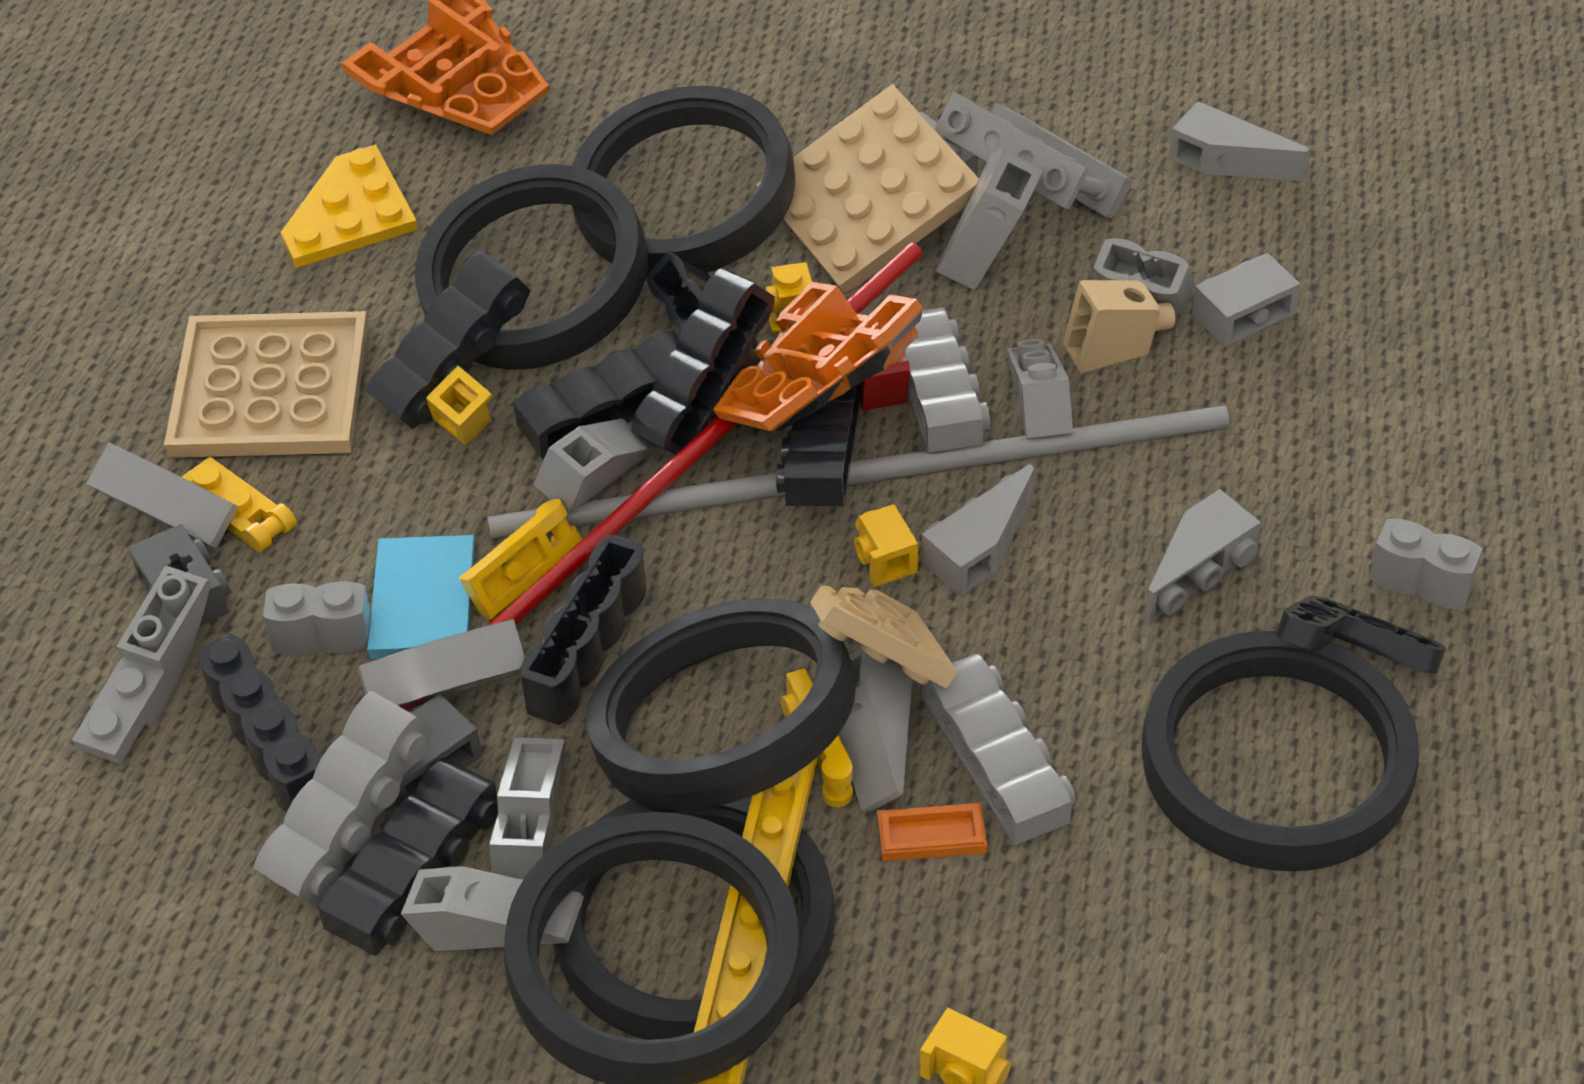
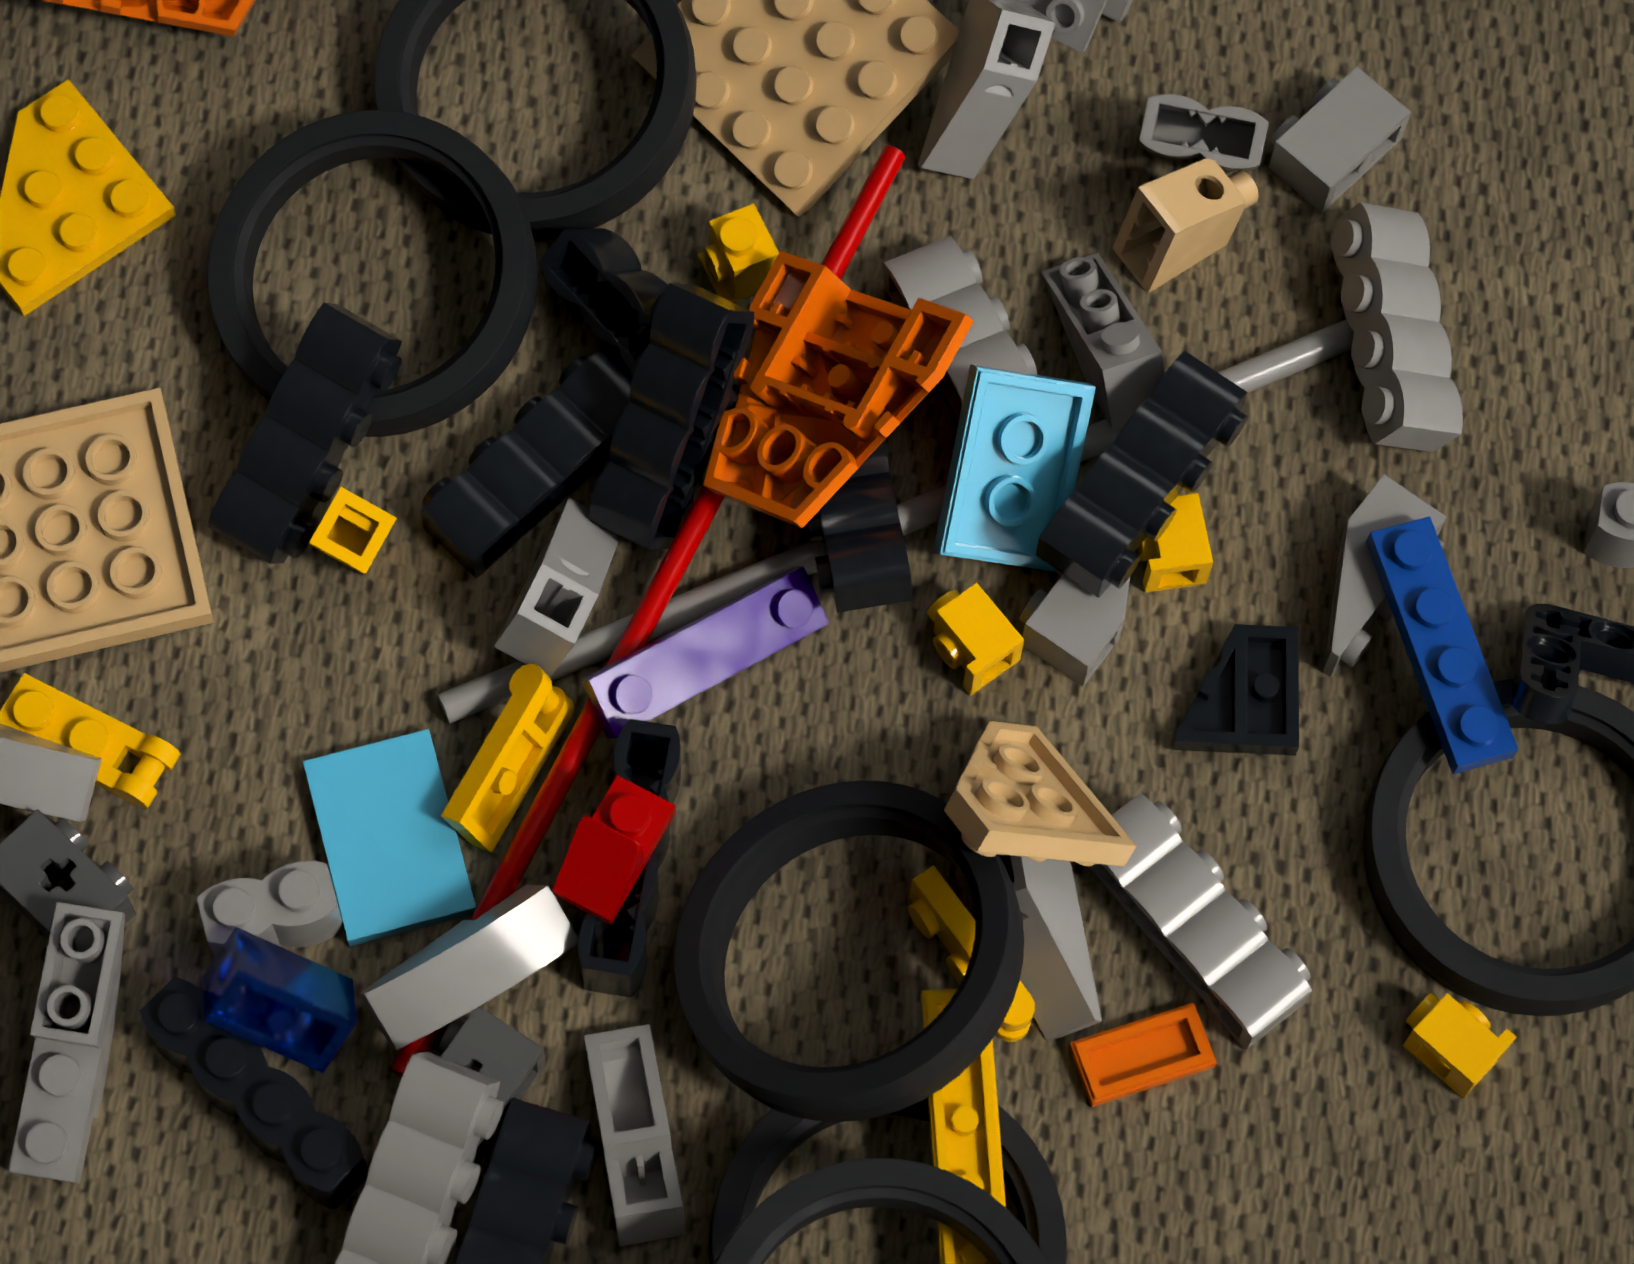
camera: 20 degrees left, 20 degrees up
(298, 661) = (279, 1000): none -> clear blue brick
(566, 602) = (612, 849): none -> red slope
(689, 515) = (706, 651): none -> plate
(941, 437) = (1011, 464): none -> medium azure tile
(1030, 452) = (1142, 474): none -> black brick
(1051, 514) = (1182, 552): none -> yellow brick
(1080, 618) = (1248, 696): none -> black wing
(1181, 864) = (1455, 1041): none -> yellow brick
(1234, 597) = (1441, 645): none -> blue plate
(1255, 410) = (1397, 335): none -> light grey brick

